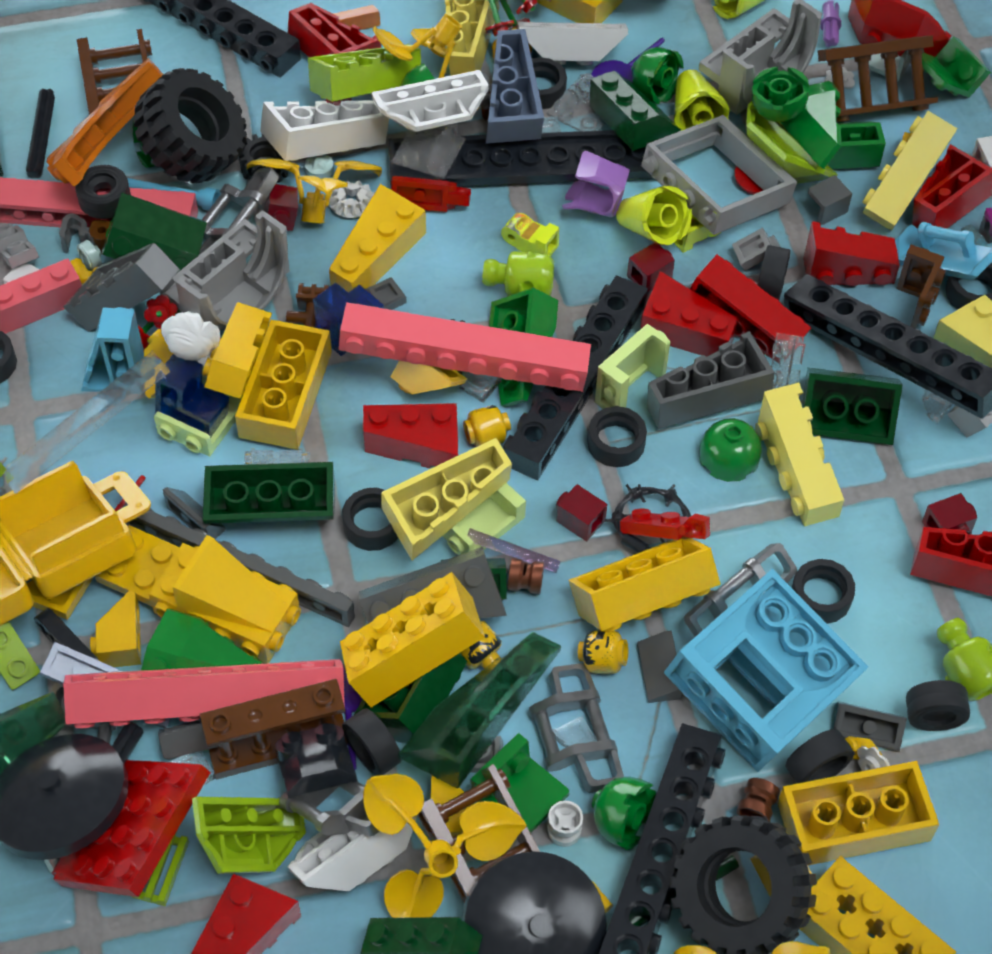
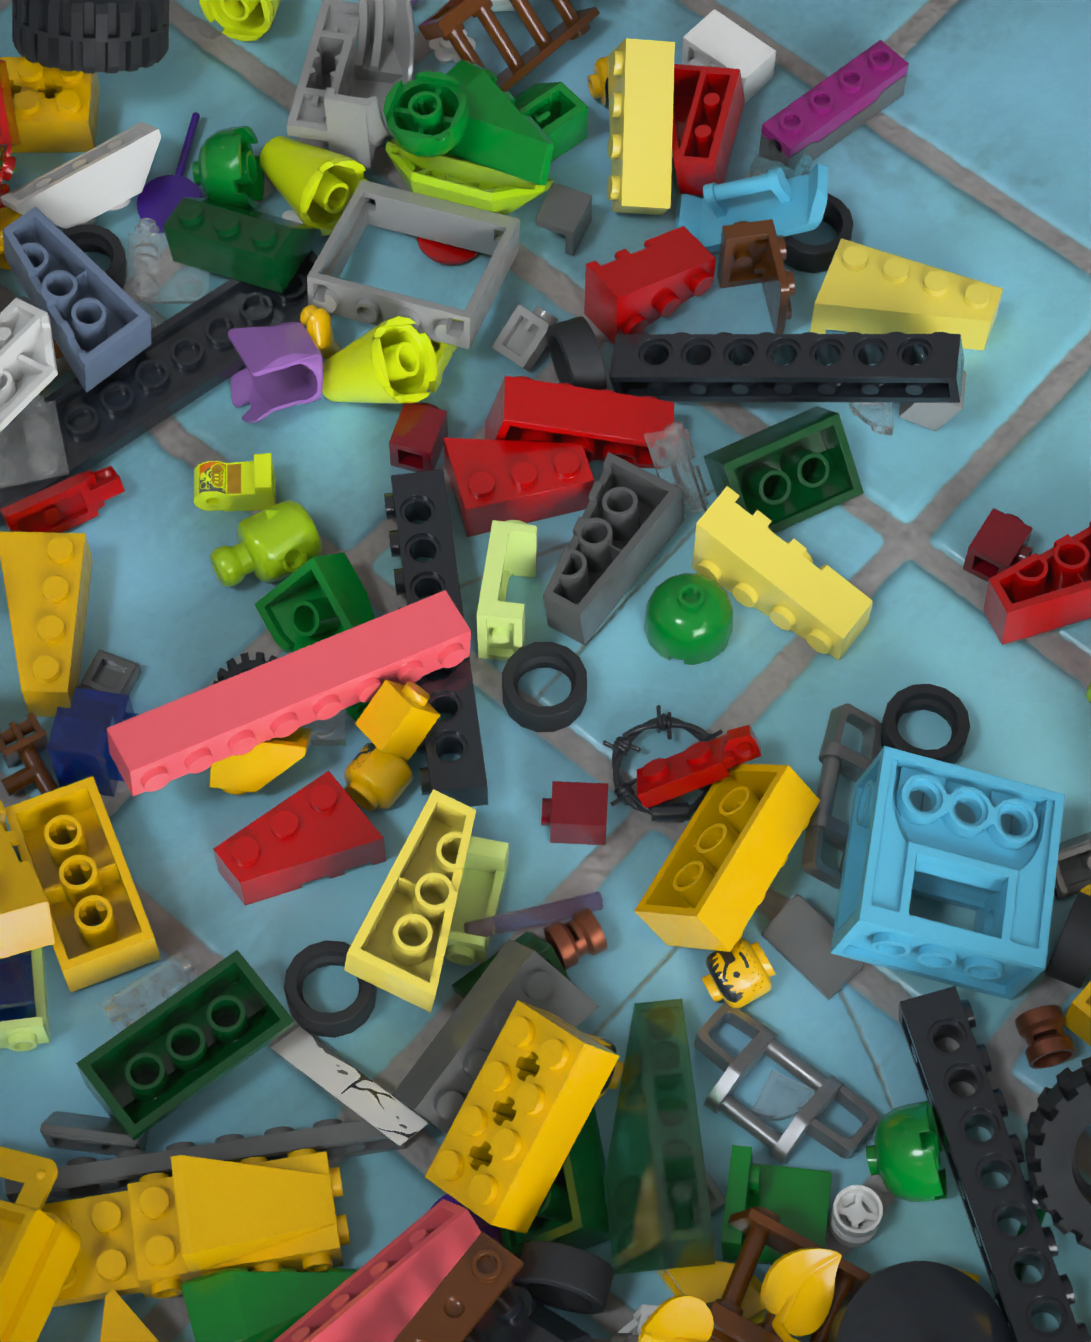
camera: 35 degrees left, 5 degrees up
(340, 572) = (350, 1086): none -> white sticker
(513, 397) = (398, 718): none -> yellow brick
(637, 178) = (320, 330): none -> yellow arm

